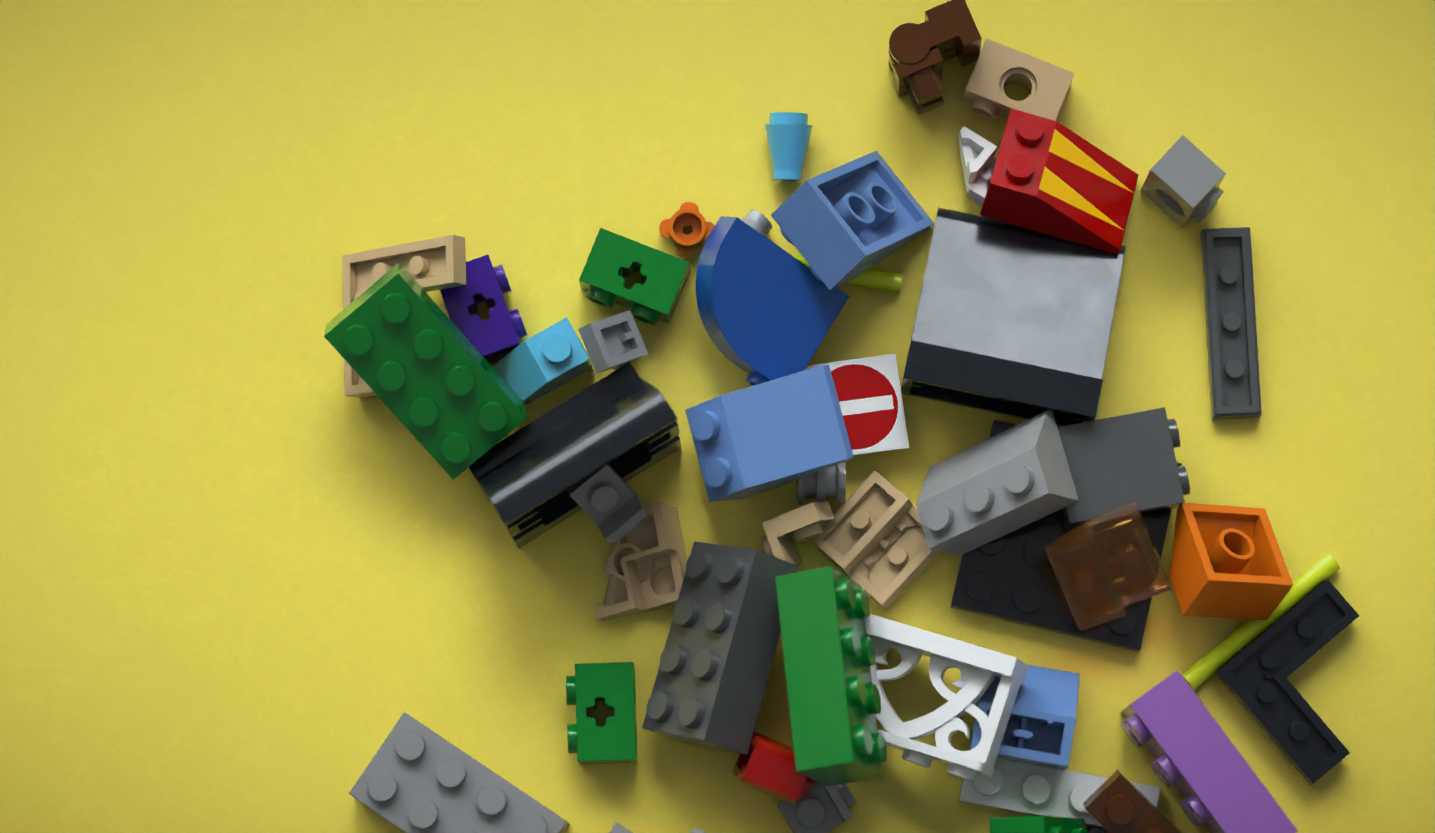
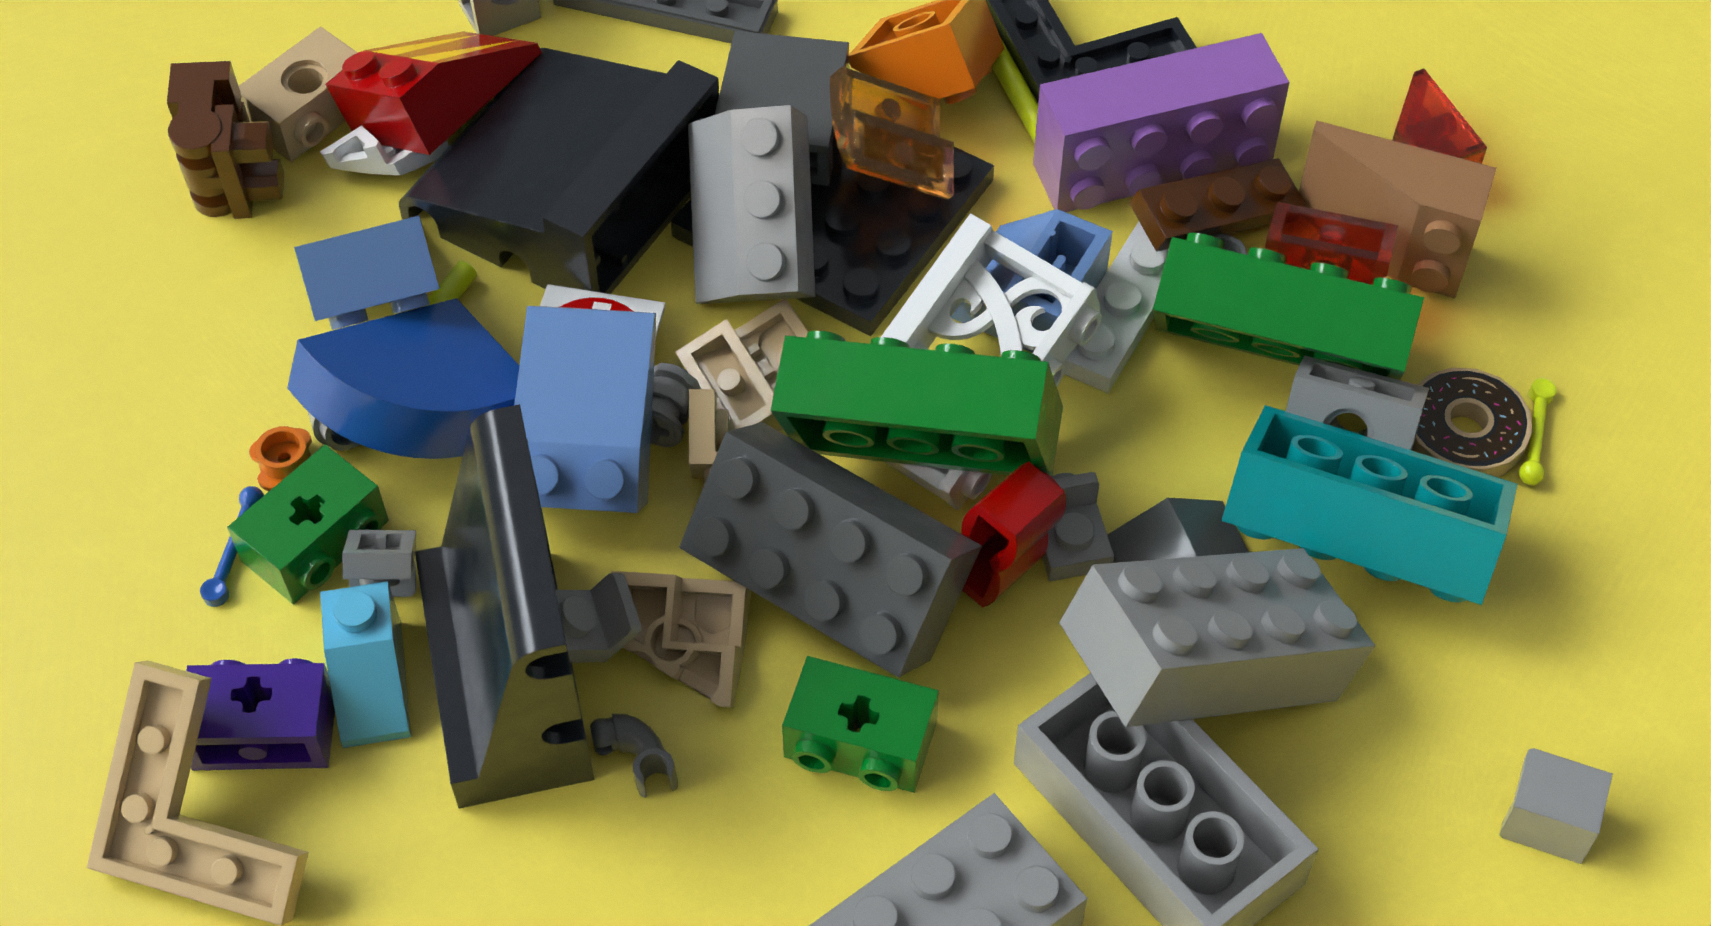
camera: 75 degrees left, 25 degrees down
(425, 371) = (297, 768): green brick -> none
(553, 562) = (635, 737): none -> dark grey arm
(571, 233) = (215, 590): none -> blue hinge
(788, 142) = (238, 322): medium azure cone -> none

